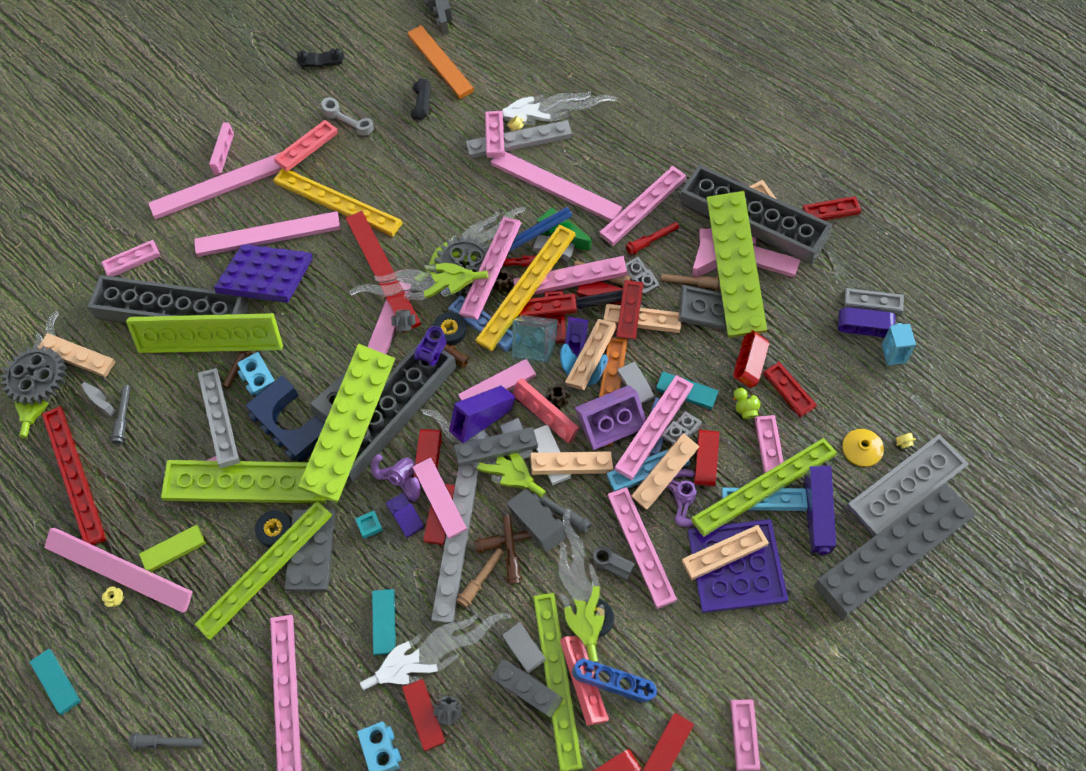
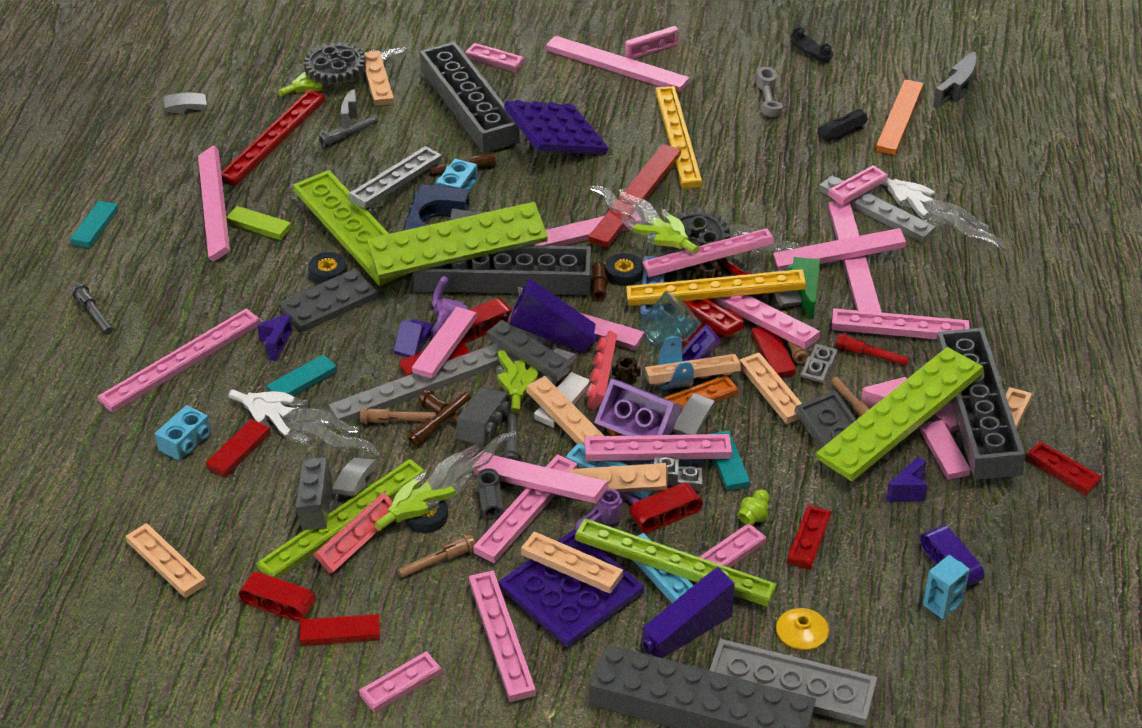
camera: 50 degrees right, 20 degrees down
(116, 600) = (189, 214): light yellow plate -> none
(205, 333) = (462, 125): lime plate -> none
(263, 570) = (286, 278): lime tile -> none
(267, 234) = (602, 116): bright pink tile -> none
(305, 145) = (710, 85): coral plate -> none
(321, 612) = (275, 335): none -> dark purple slope
(369, 524) = (382, 319): teal plate -> none
(403, 320) = (593, 225): dark grey gear -> none
(429, 349) = (584, 250): dark purple piece -> none
(447, 710) = (252, 455): dark grey gear -> none
(515, 123) = (889, 195): light yellow plate -> none
(541, 227) = (778, 260): blue axle -> none
(548, 185) = (843, 248): none -> bright pink tile
(599, 299) = (784, 359): black axle -> none
(614, 679) = (369, 550): blue beam -> none
(629, 310) = (766, 367): red tile -> none
(633, 518) = (547, 479): none -> bright pink tile
(647, 614) = (448, 551): none -> medium nougat pin
(750, 639) = (502, 636): none -> bright pink plate
(751, 359) = (808, 484): red beam -> none
(788, 303) = (909, 483): none -> dark purple slope
(873, 301) = (989, 555): light grey tile -> none
(905, 440) = (842, 655): light yellow plate -> none

